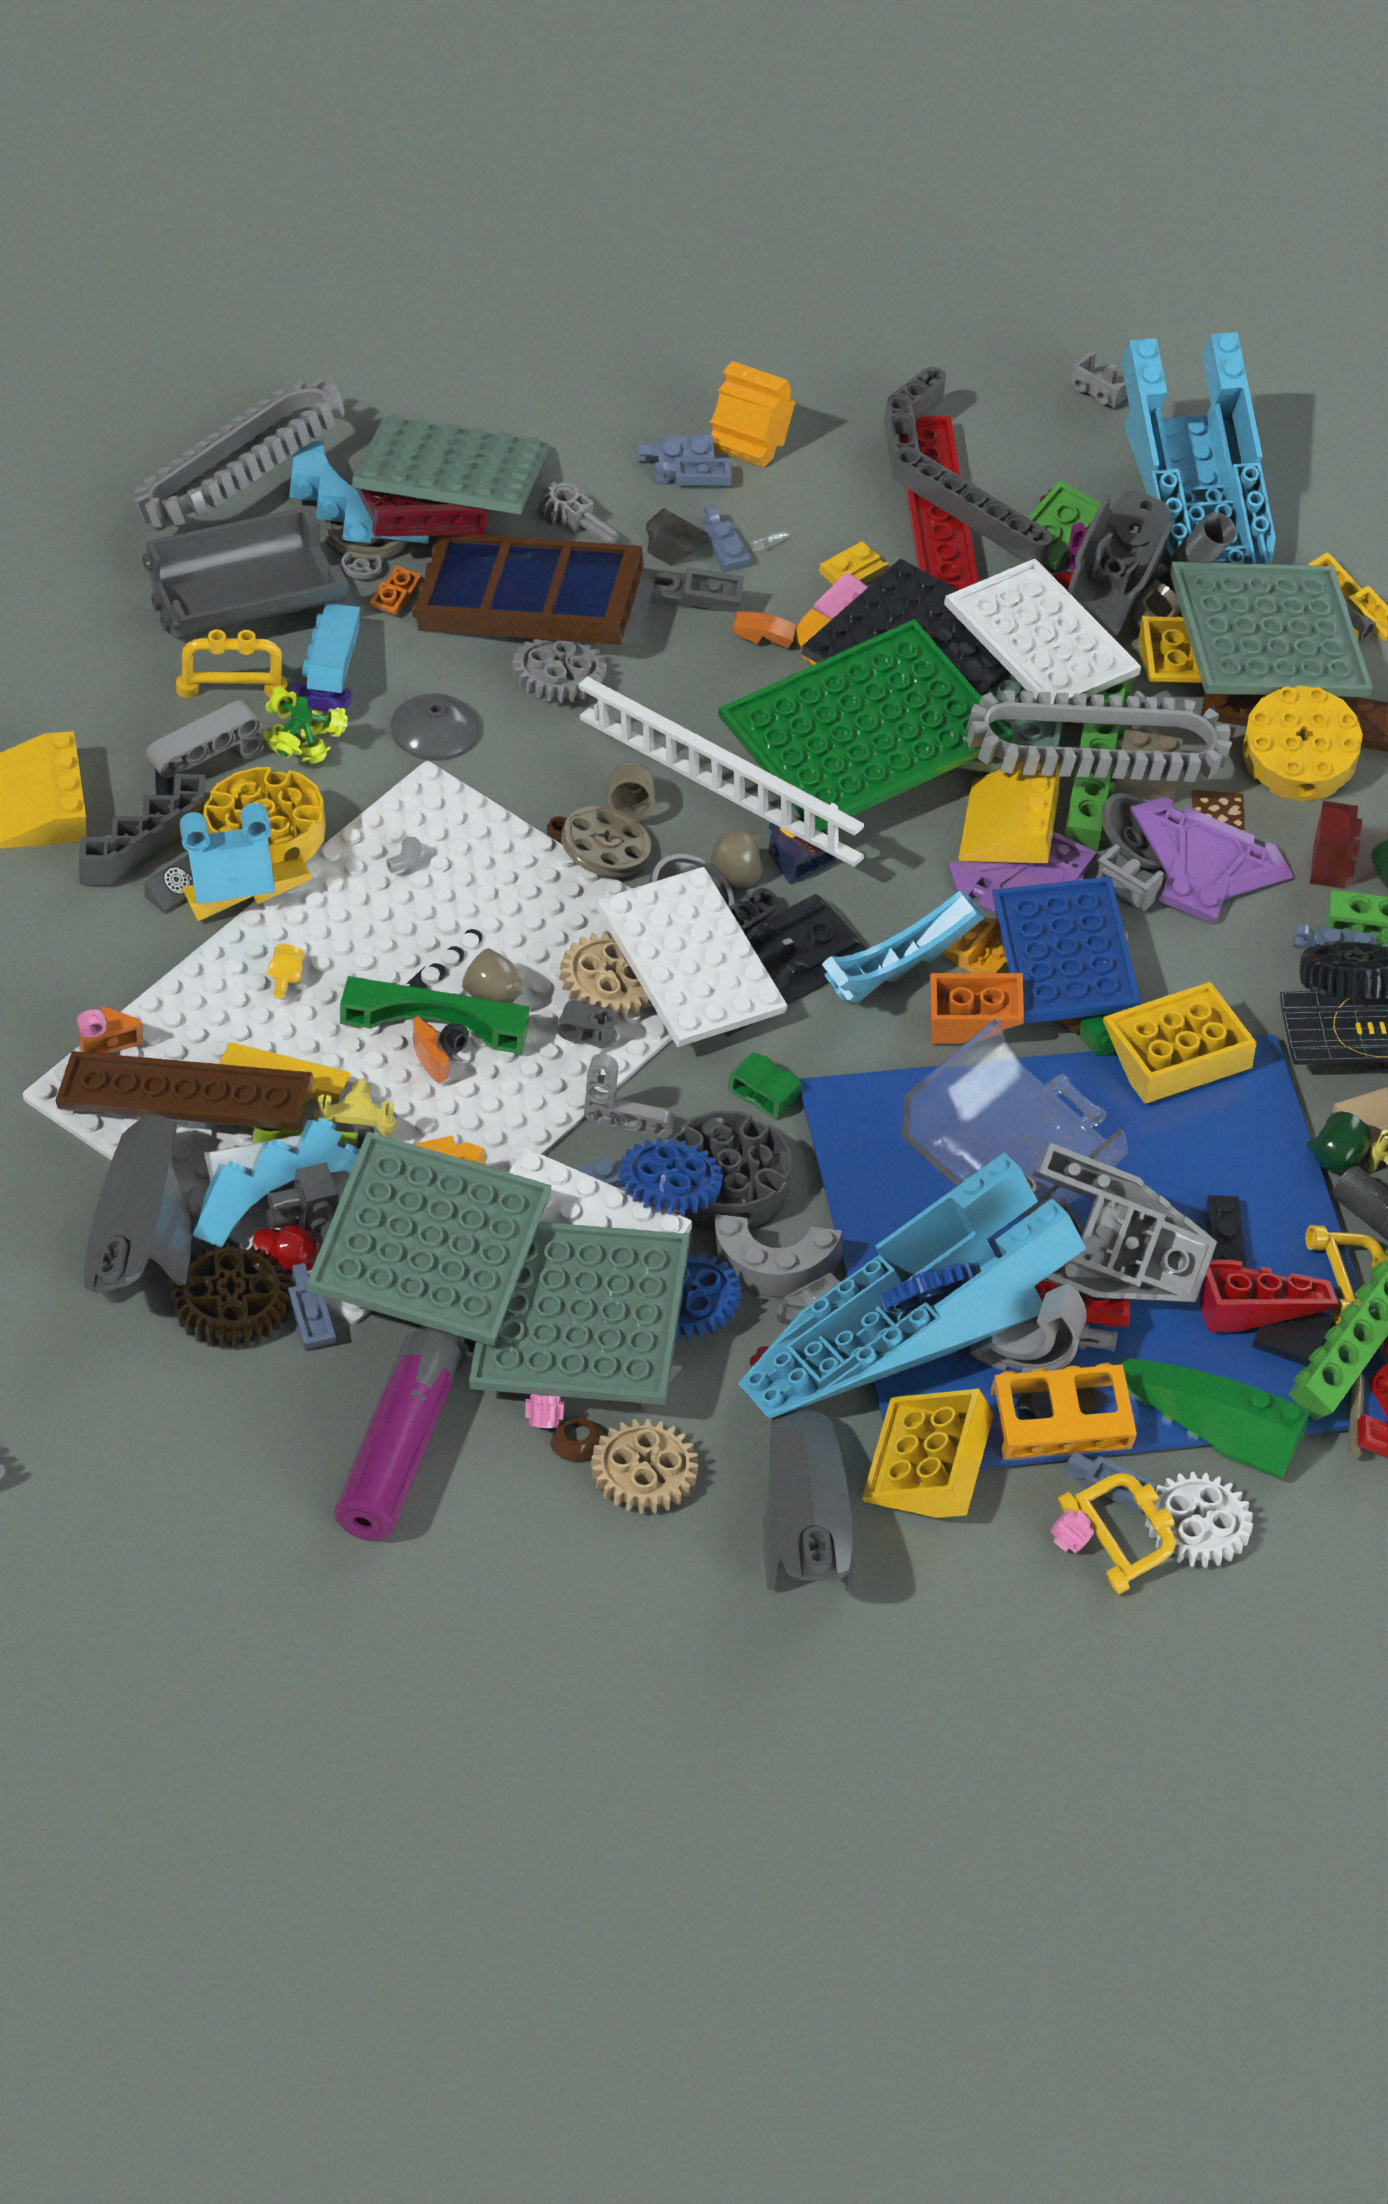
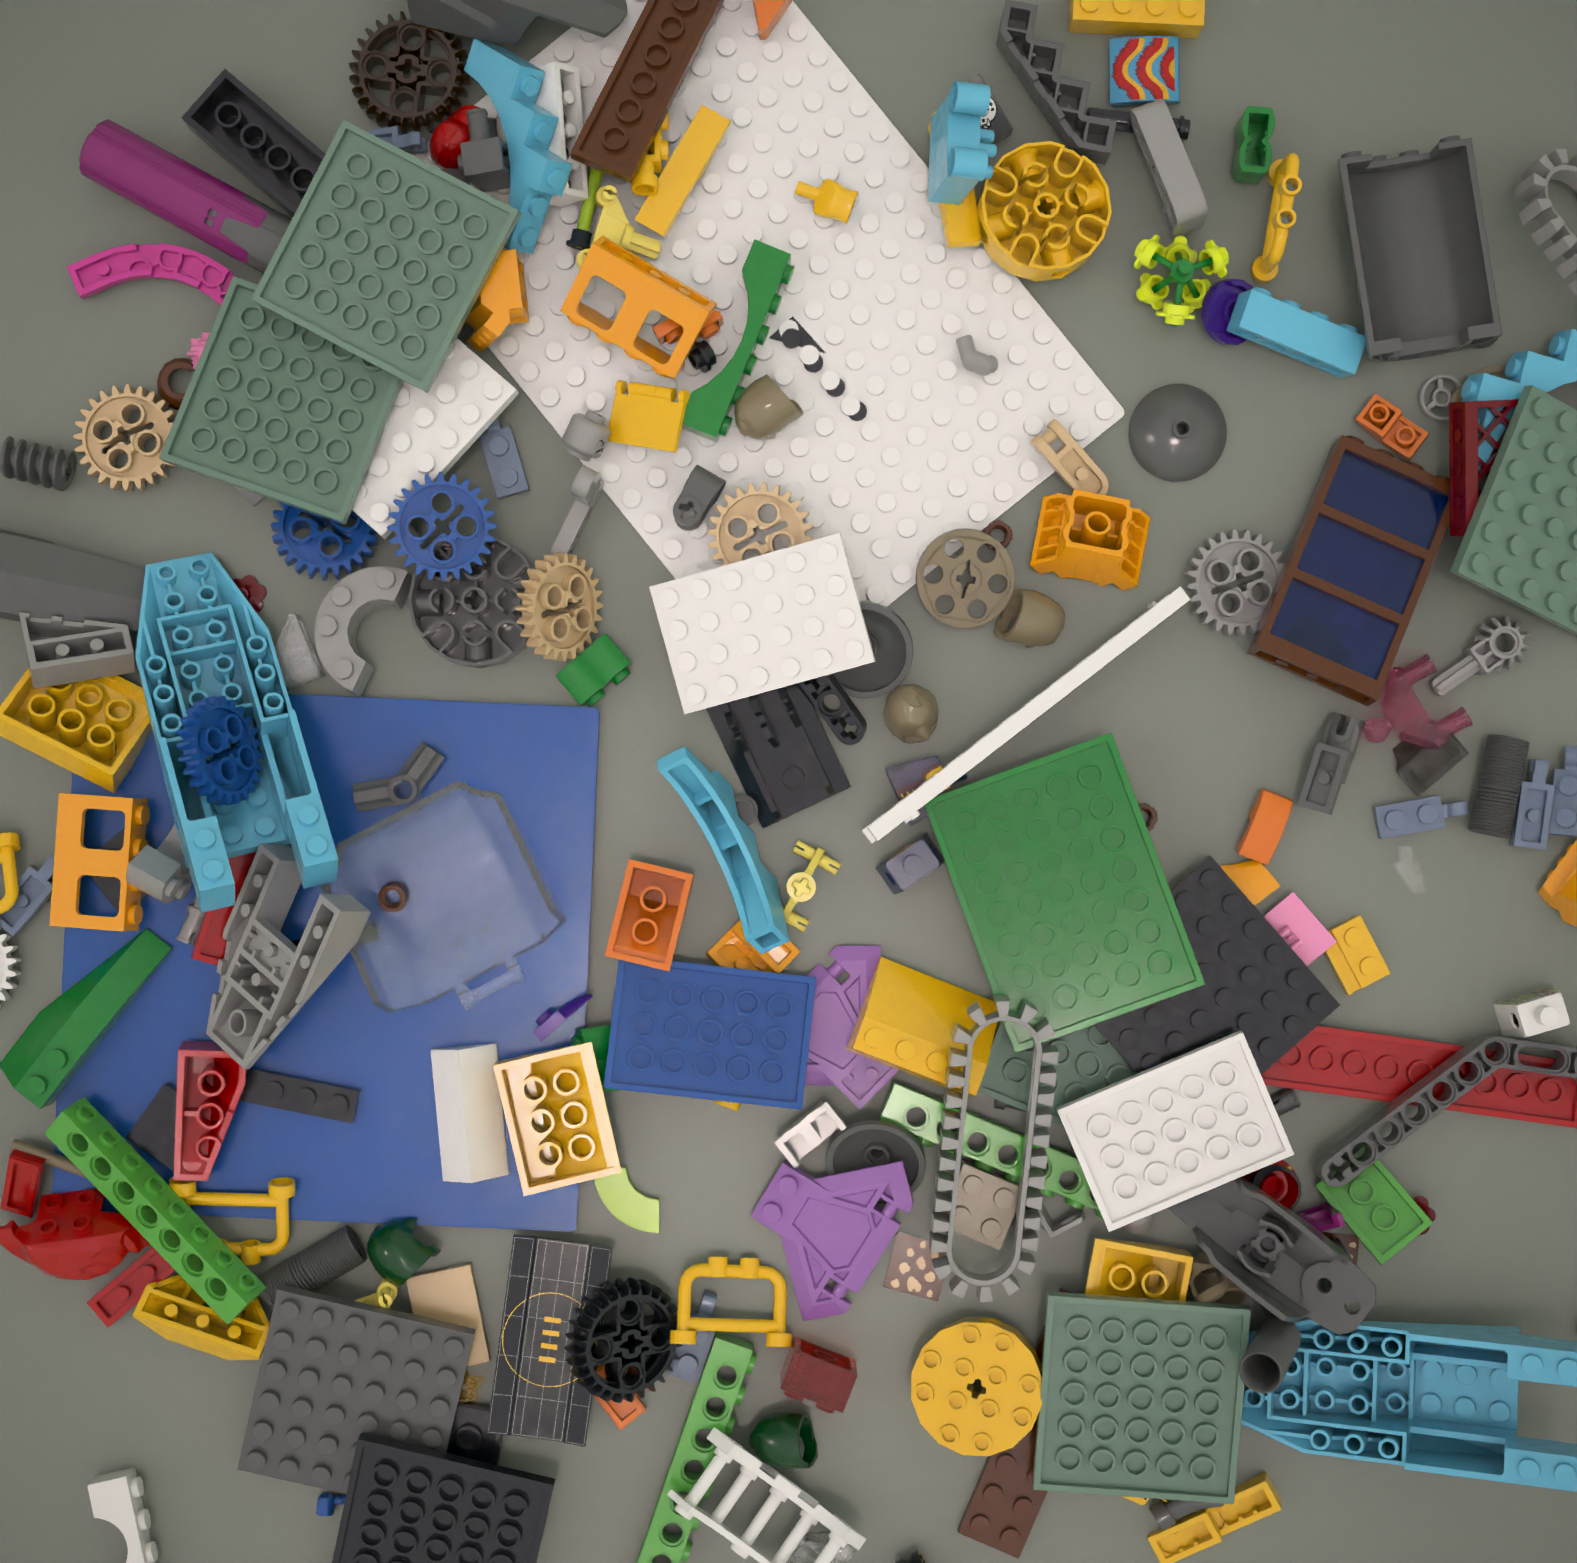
camera: 100 degrees right, 40 degrees up
(115, 780) = (1144, 70): none -> slope
(171, 695) = (1253, 145): none -> green brick
(337, 1383) = (255, 140): none -> black brick
(412, 1056) = (645, 290): none -> light orange window
(461, 1467) = (150, 261): none -> dark pink plate
(483, 781) = (1070, 460): none -> tan plate
(522, 1065) = (647, 416): none -> yellow piece
(547, 763) = (1090, 538): none -> light orange slope
(550, 1107) = (586, 435): none -> light grey head
(650, 536) = (1406, 713): none -> clear pink connector
(674, 489) = (1502, 776): none -> dark grey piece
(690, 1532) = (37, 467): none -> dark grey piece
(717, 1095) = (551, 586): none -> tan gear
(866, 448) = (1535, 1012): none -> white torso
(867, 1455) = (75, 651): none -> light grey wedge
(877, 842) = (910, 864): none -> torso
(908, 909) = (802, 885): none -> light yellow axle
(913, 1193) = (383, 792): none -> dark grey piece
(1094, 1061) = (550, 1021): none -> dark purple plate
(1199, 1119) = (469, 1113): none -> white slope
(1241, 996) = (629, 1203): none -> lime tile
(1309, 888) = (719, 1268): none -> yellow bar

